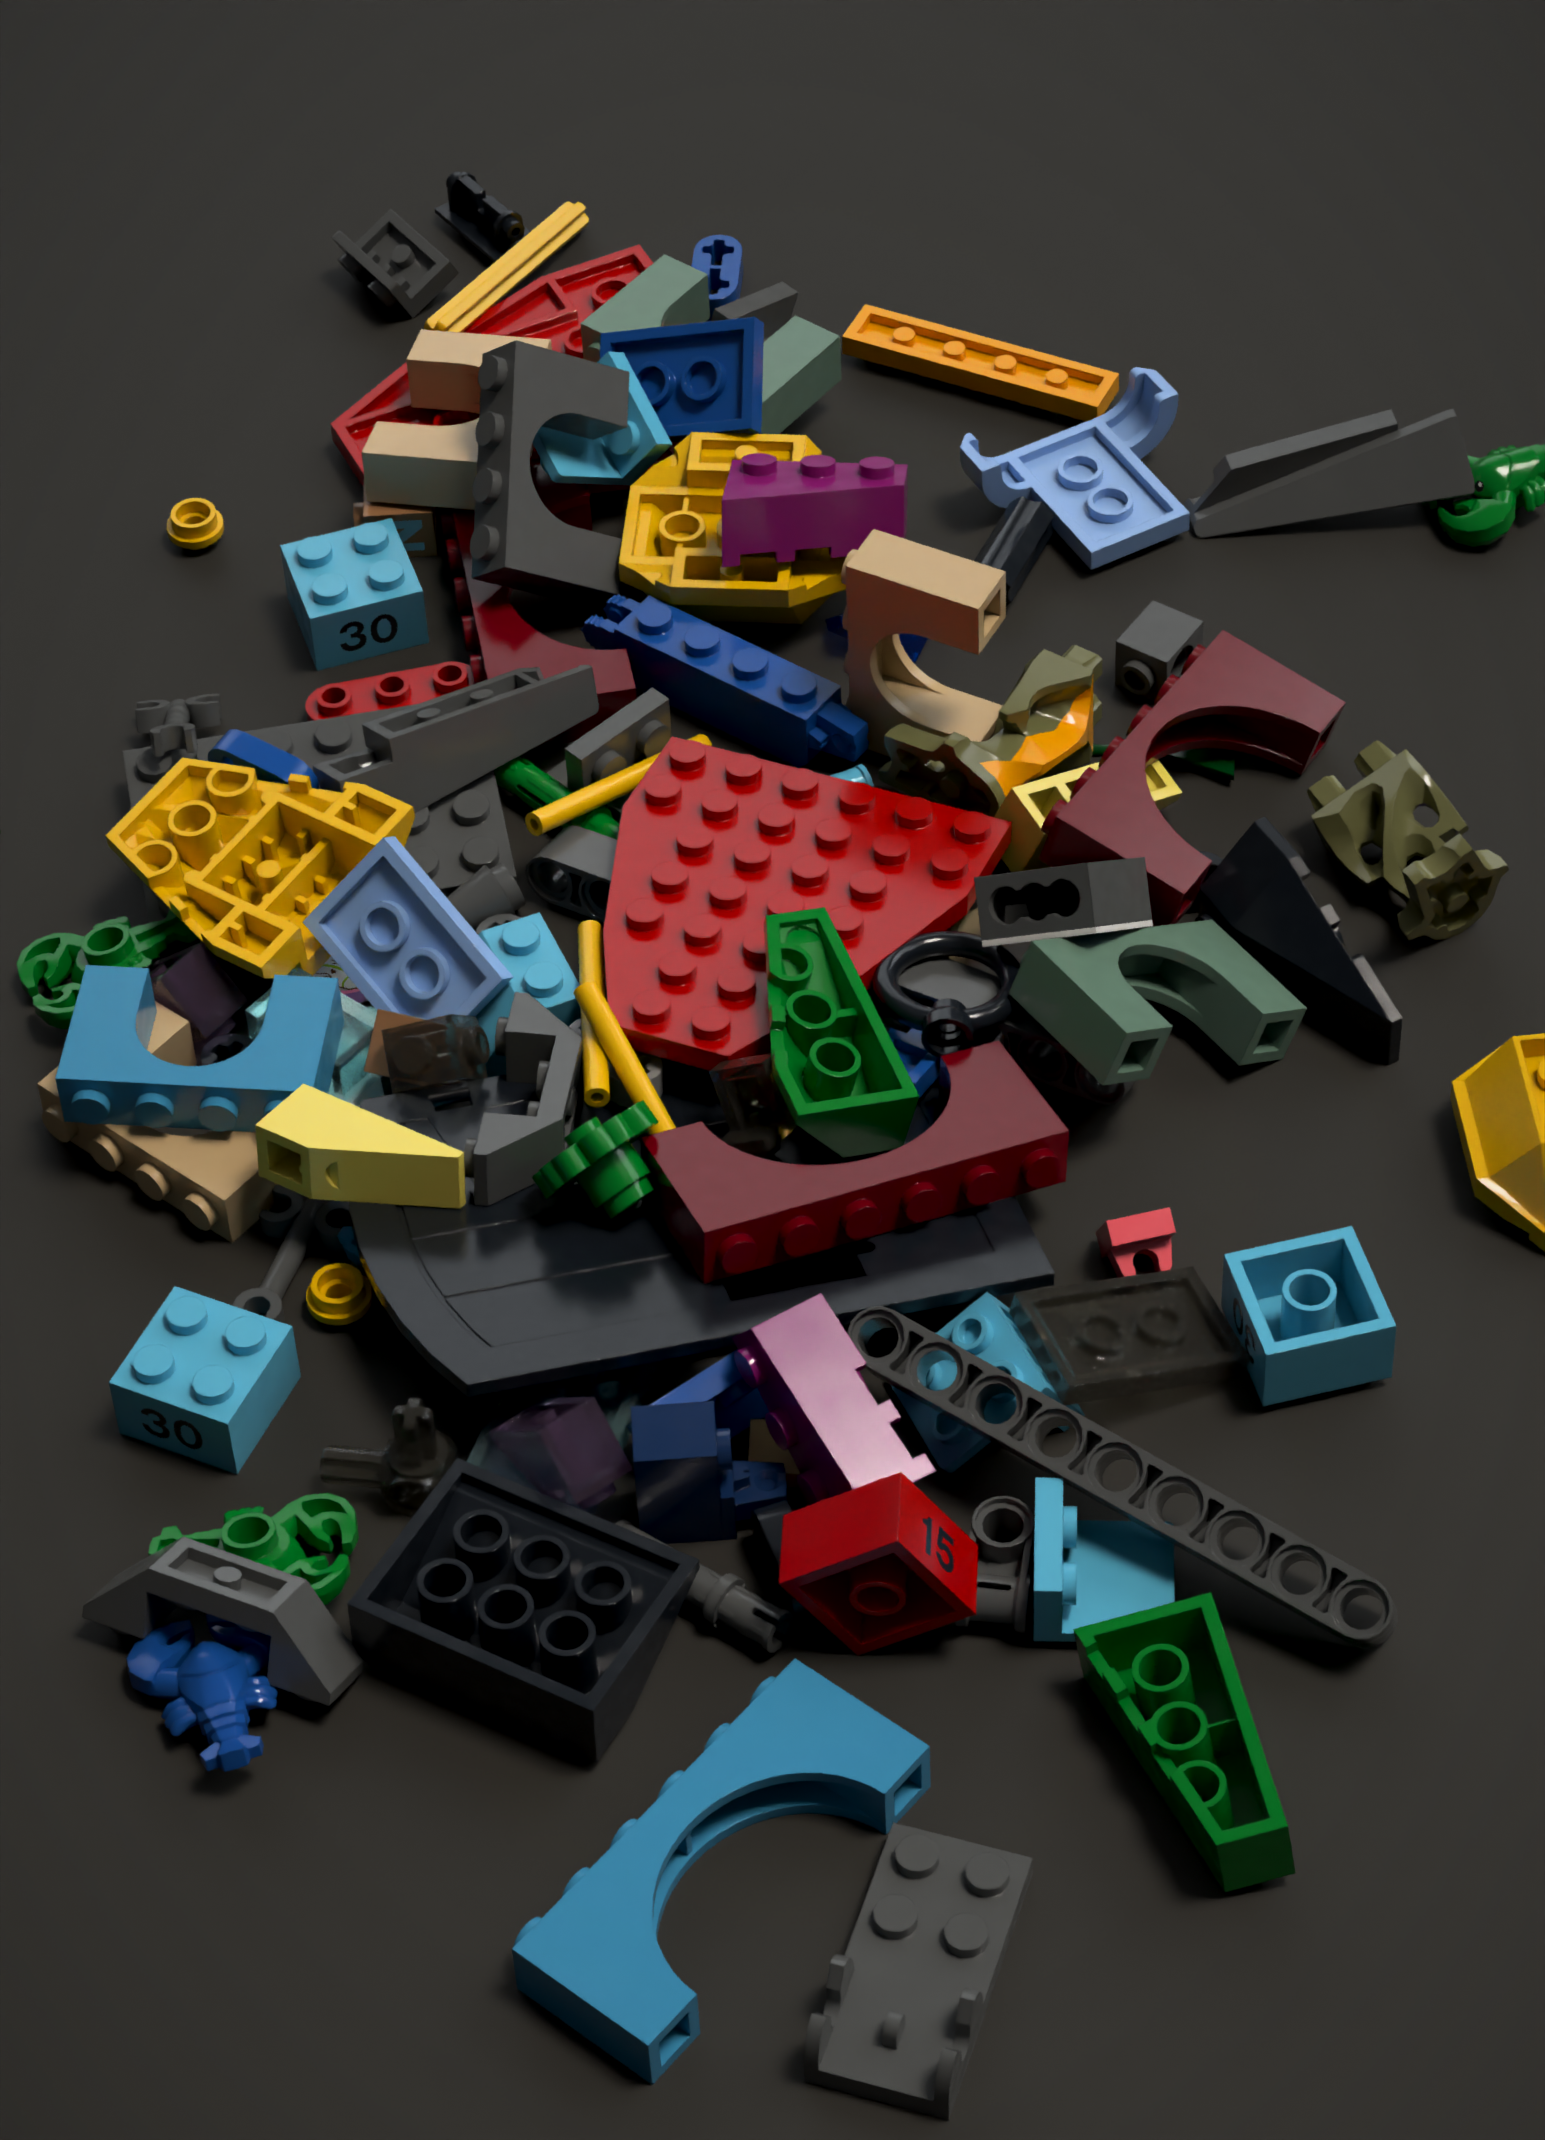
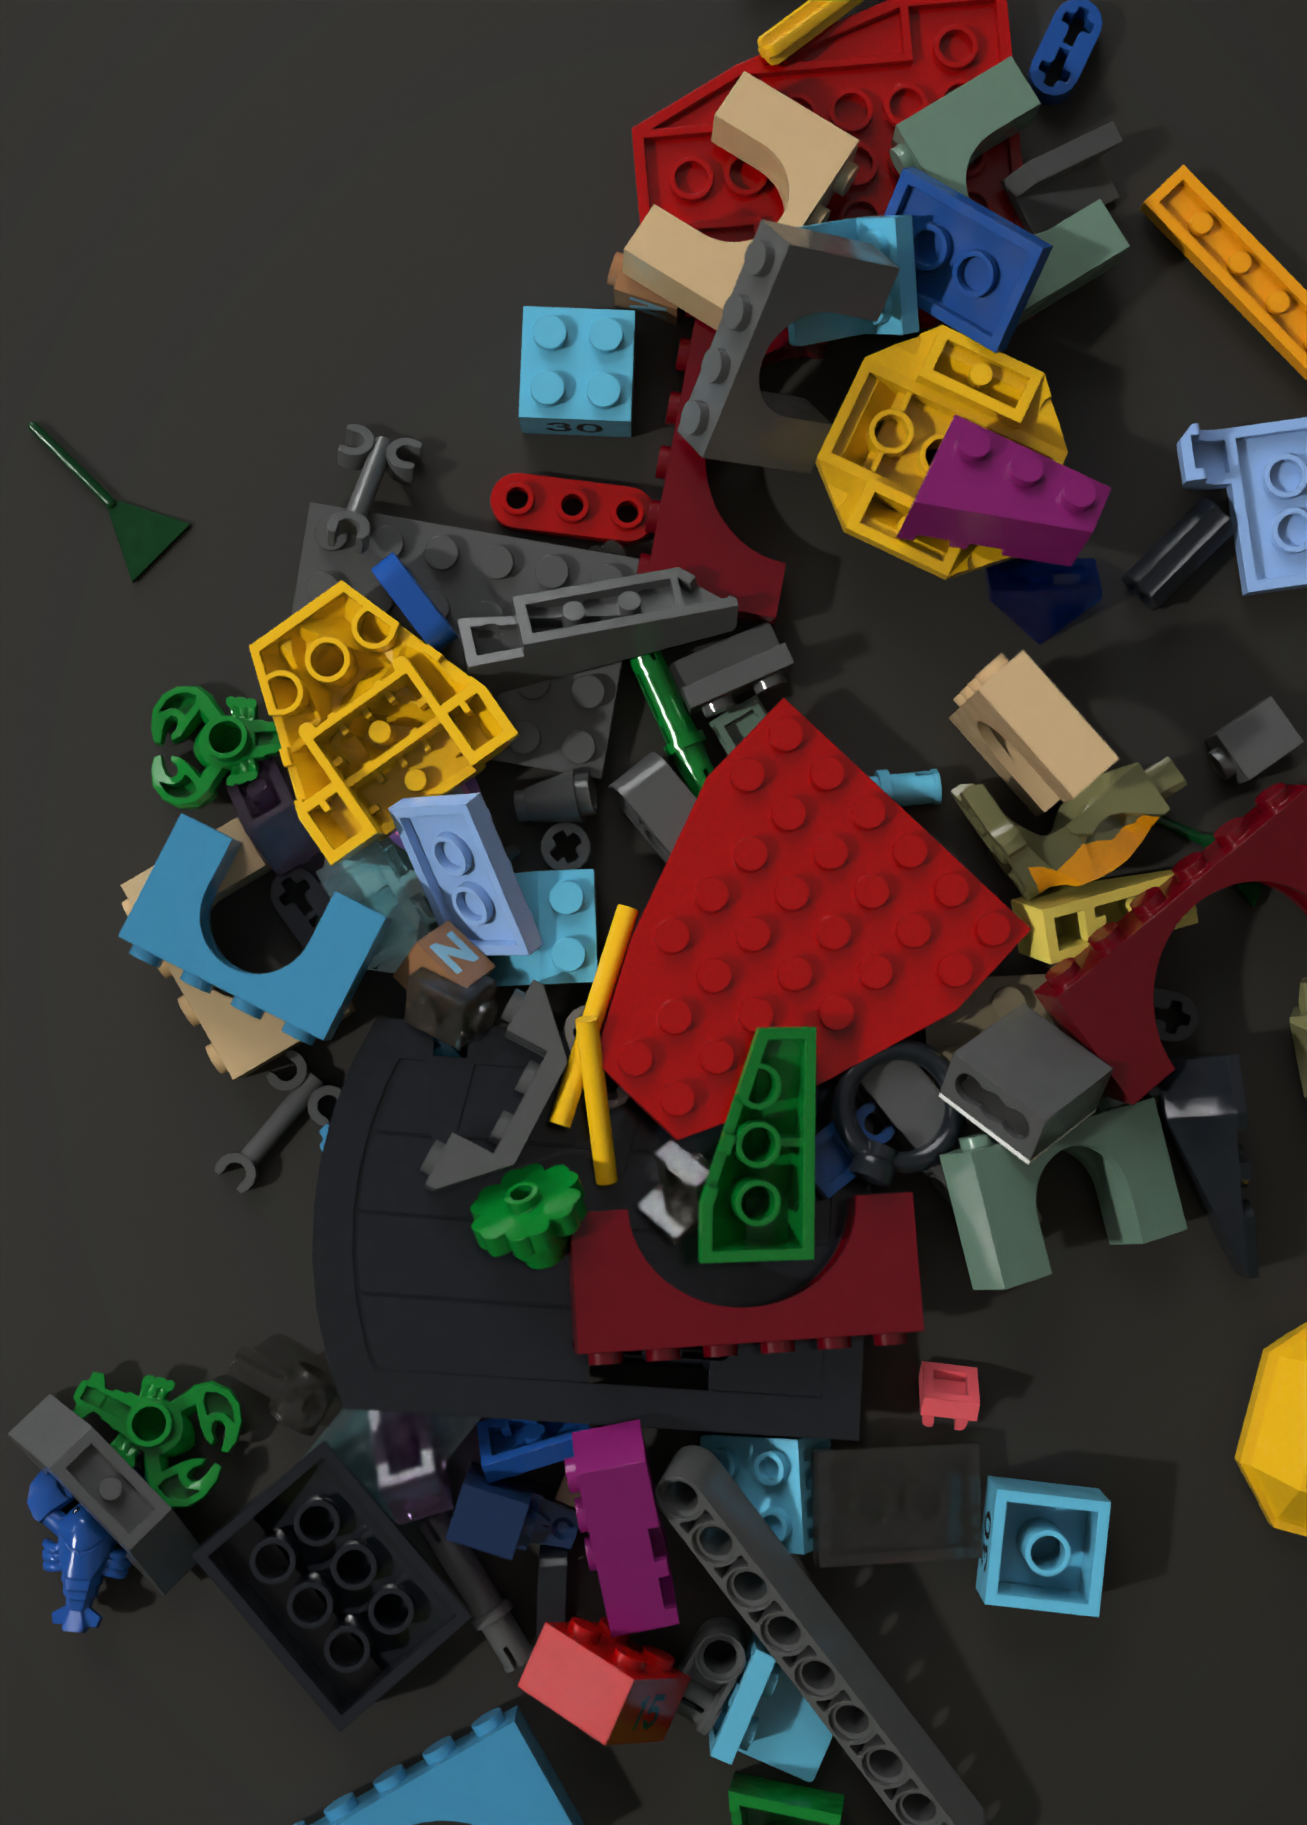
camera: 20 degrees right, 40 degrees up
(194, 524) = (466, 191): yellow plate -> none
(205, 1379) = (166, 1243): medium azure brick -> none
(339, 1294) = (286, 1183): yellow plate -> none
(353, 1155) = (324, 1108): light yellow slope -> none
(592, 796) = (718, 725): yellow piece -> none
(729, 681) = (863, 625): blue hinge -> none

